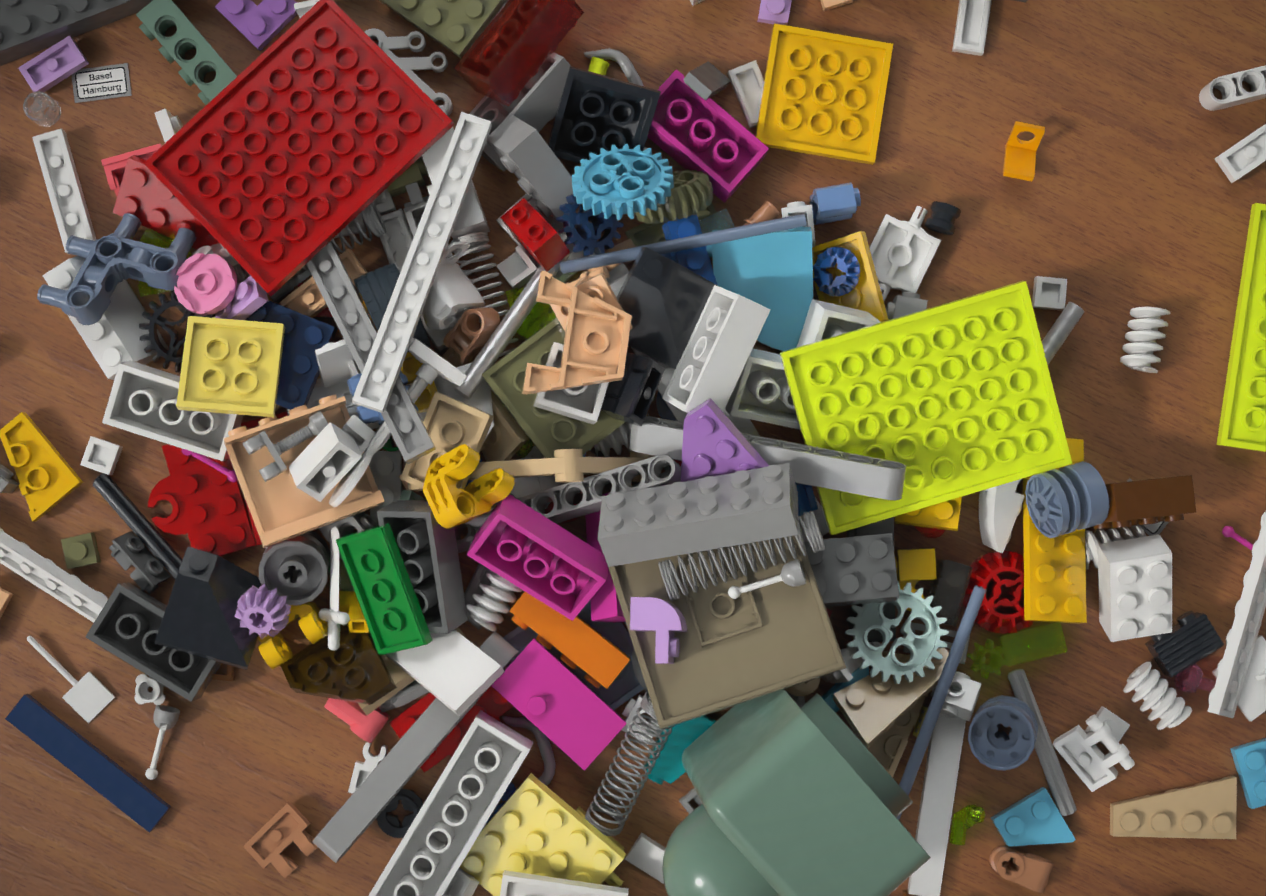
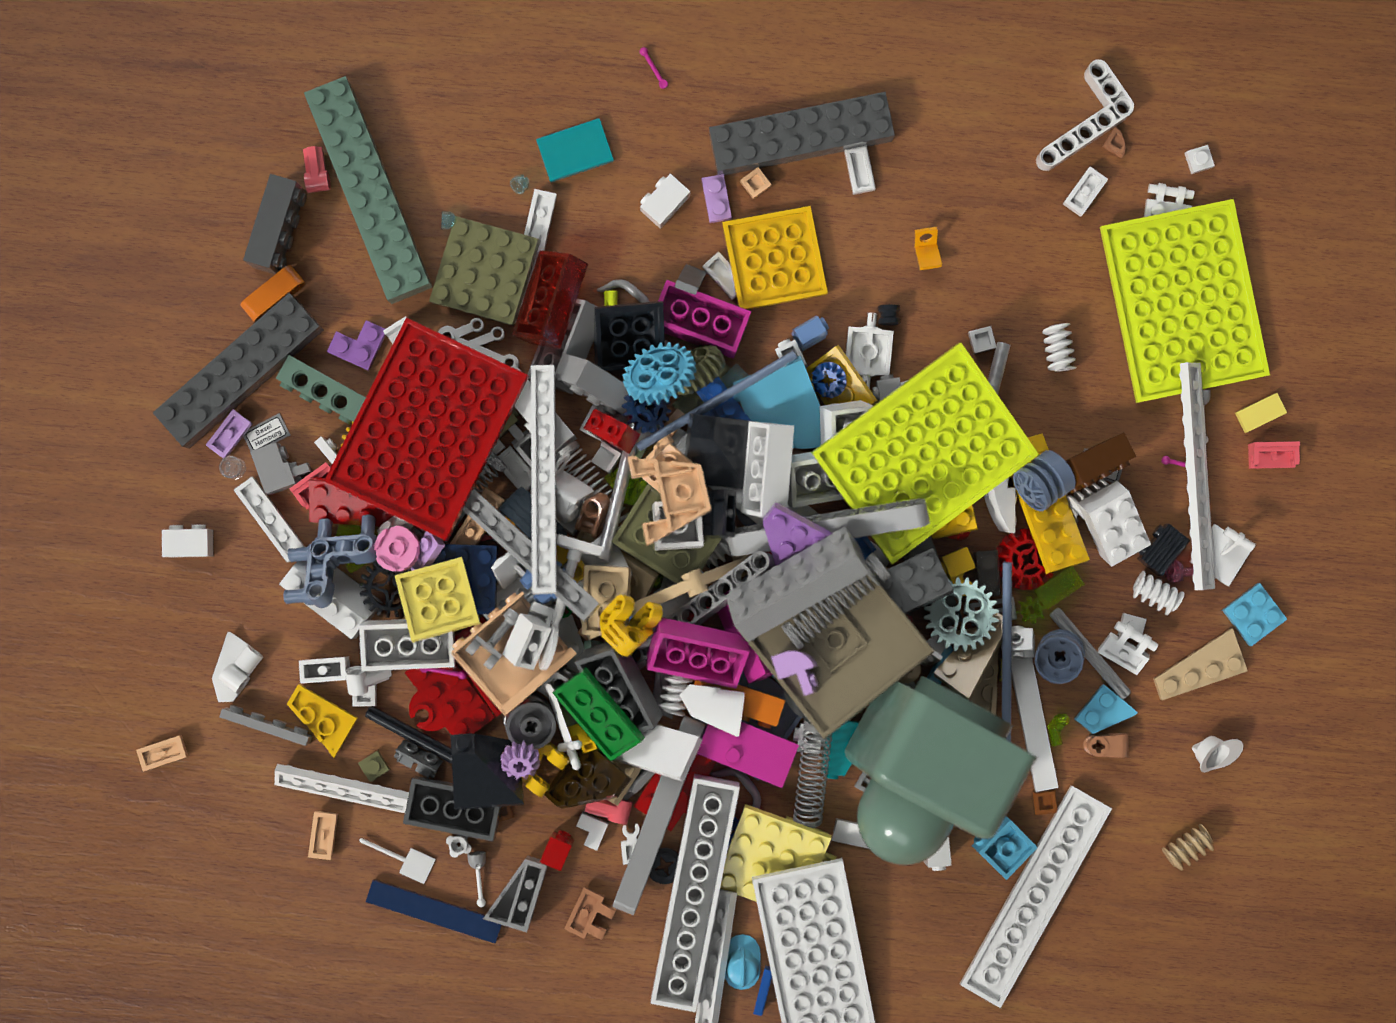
camera: 20 degrees left, 0 degrees up
(61, 405) = (323, 669): none -> white brick
(94, 131) = (275, 471): none -> light grey hinge
(98, 437) = (359, 680): none -> white piece
(201, 785) = (519, 897): none -> light grey wedge
(270, 743) = (557, 850): none -> red brick
(330, 731) = (595, 827): none -> white piece
(536, 634) = (715, 706): none -> white panel
(764, 213) = (764, 359): nougat pin -> none
(791, 574) = (874, 601): hinge -> none

